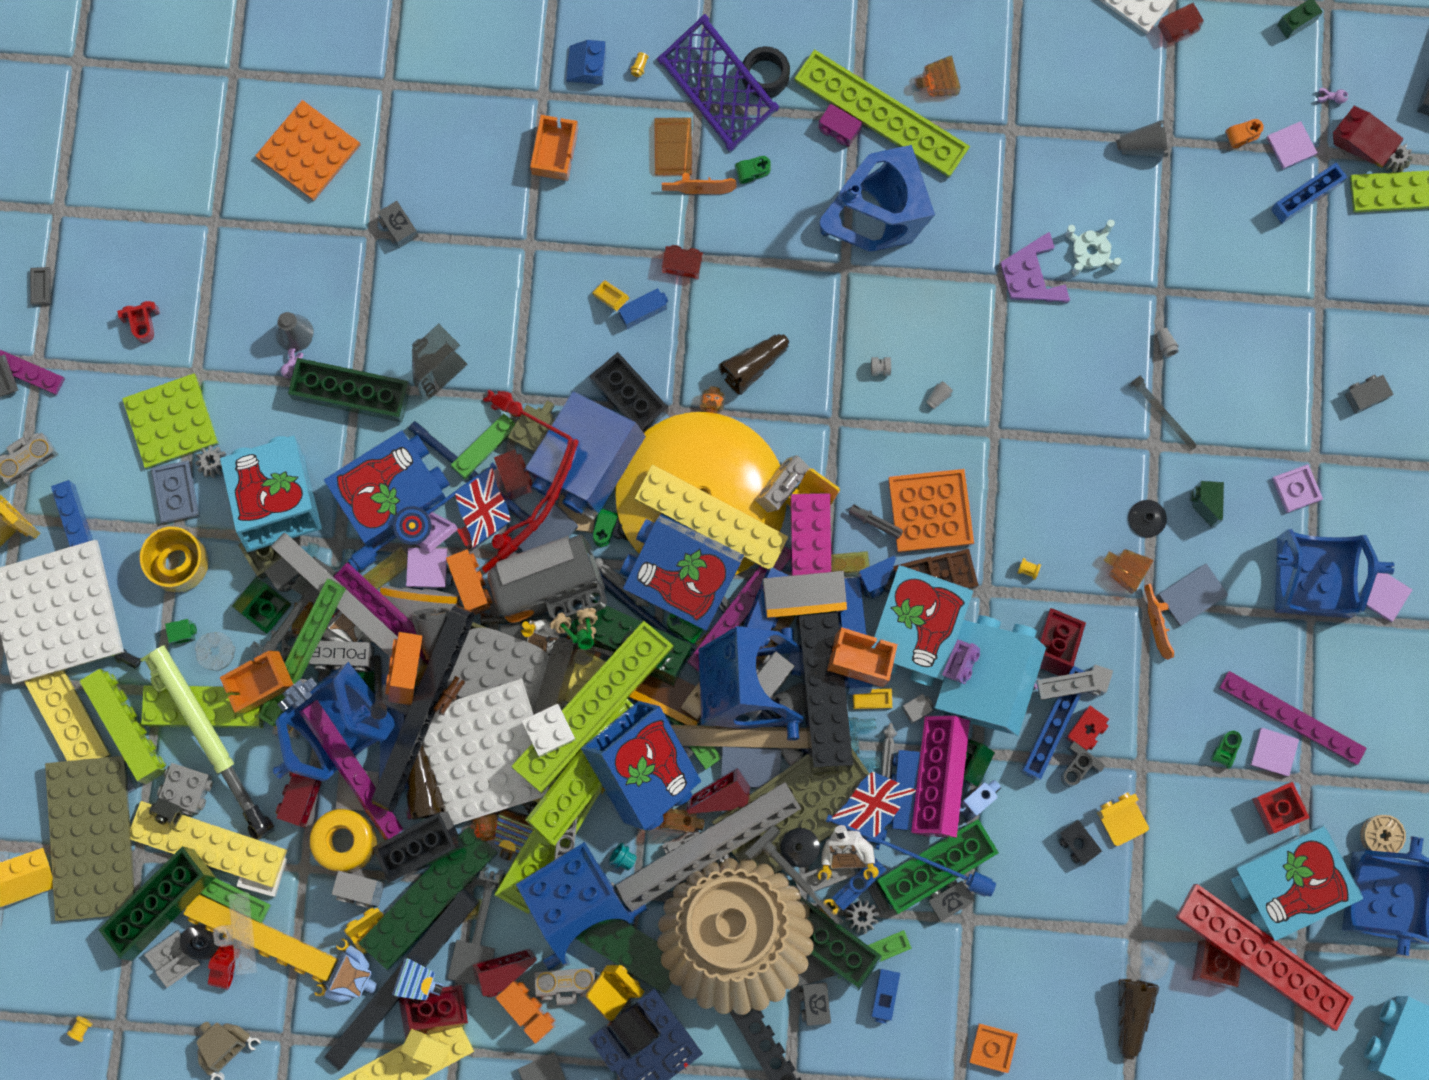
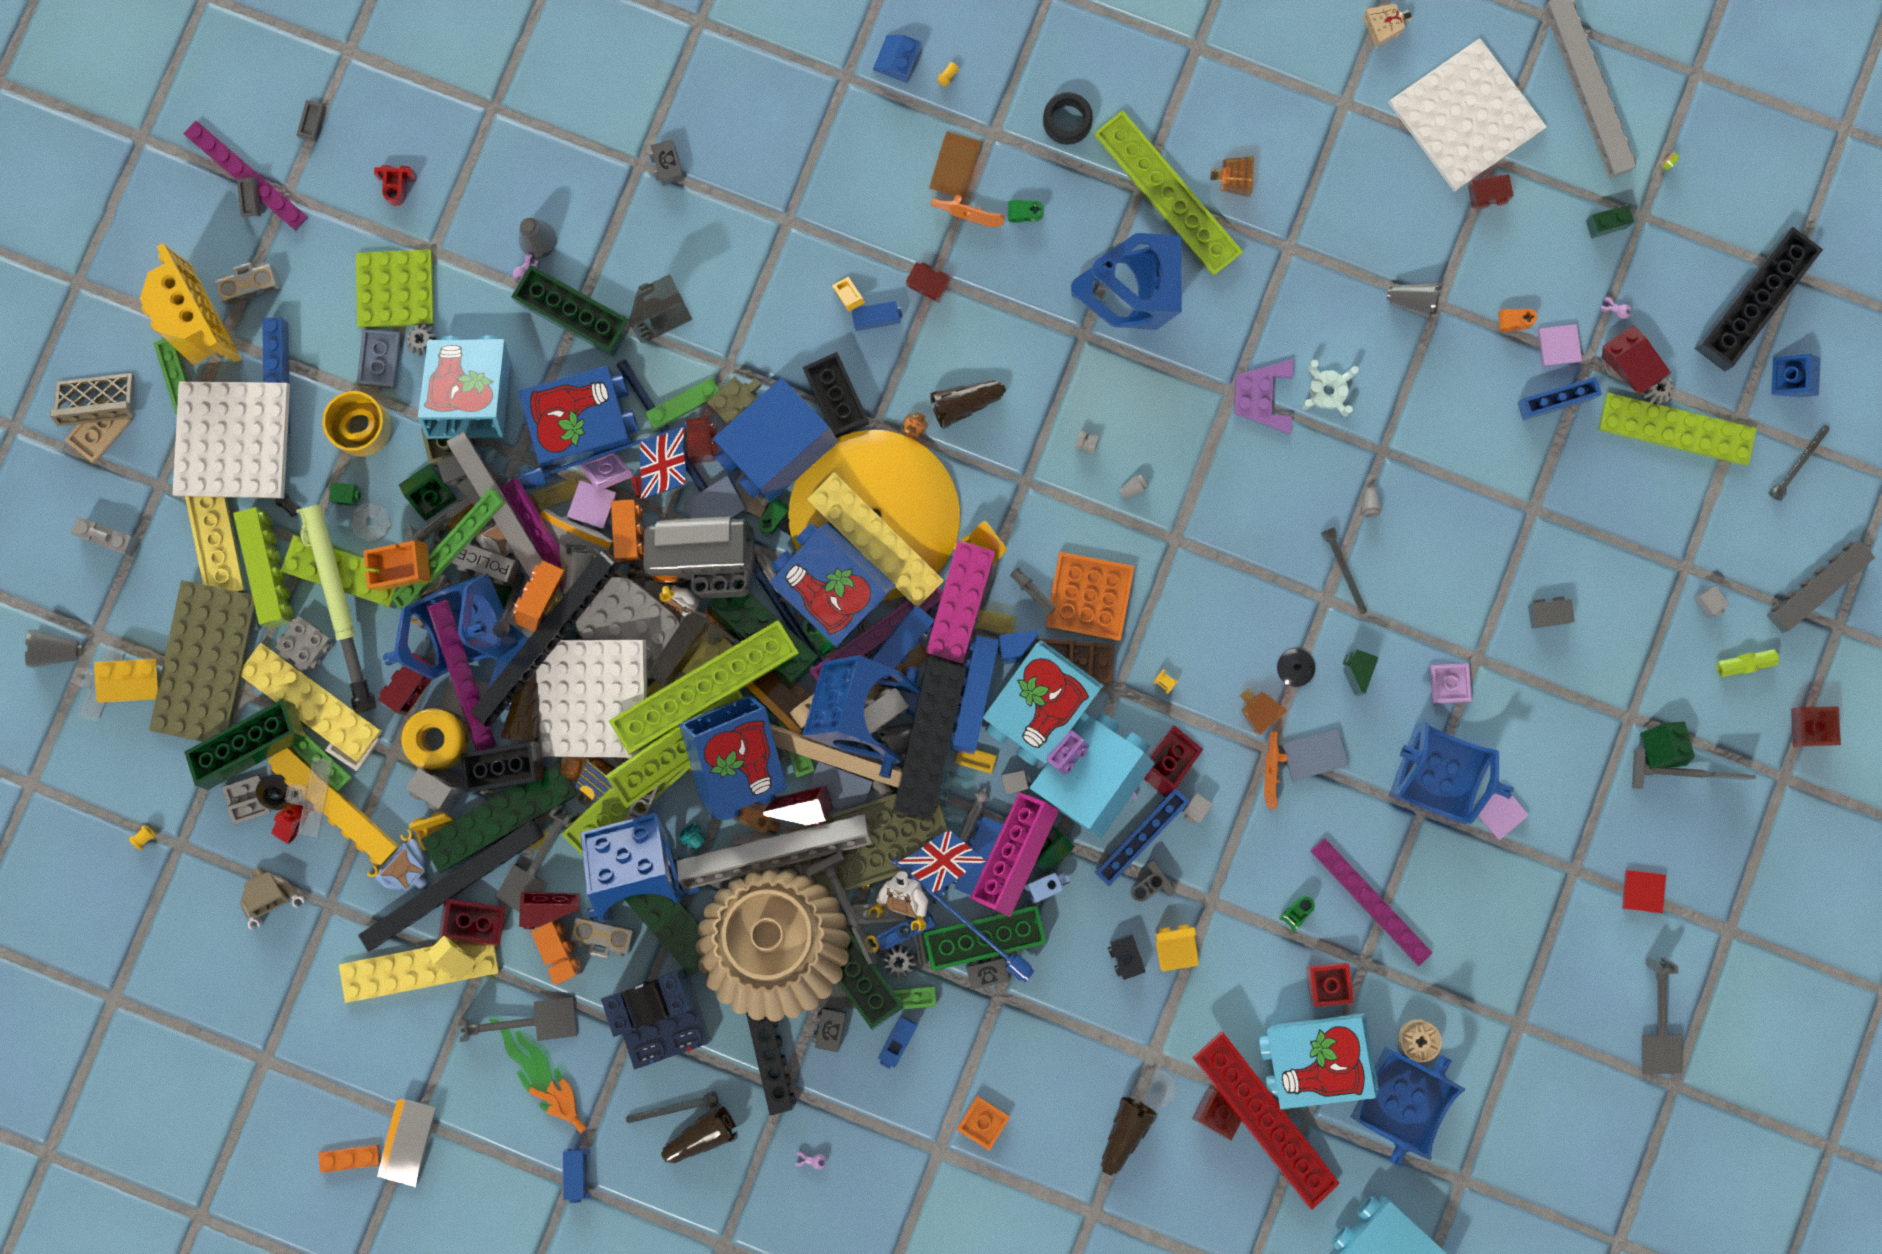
camera: 20 degrees right, 5 degrees up
(166, 812) = (278, 662): pearl dark grey brick -> none
(297, 694) = (429, 589): sand blue gear -> none
(308, 150) = (603, 63): orange plate -> none
(412, 525) = (588, 460): tile -> none
(416, 981) = (461, 893): torso -> none
(448, 695) = (573, 634): reddish brown pin -> none
(508, 546) = (672, 502): red piece -> none
(548, 730) = (653, 697): white plate -> none
(554, 148) = (839, 132): orange piece -> none
(585, 634) = (720, 612): plant -> none
(613, 990) = (643, 958): yellow bracket -> none
(662, 59) = (972, 76): dark purple door -> none
(782, 483) = (954, 527): light grey piece -> none
(804, 594) = (940, 641): light grey slope -> none
(809, 851) = (869, 882): black dish -> none
(839, 125) = (1122, 193): magenta brick -> none
(856, 659) = (969, 719): orange piece -> none
(1067, 685) = (1163, 805): light grey plate -> none
(1092, 718) = (1175, 841): red brick -> none
(1274, 752) = (1342, 929): lavender tile -> none

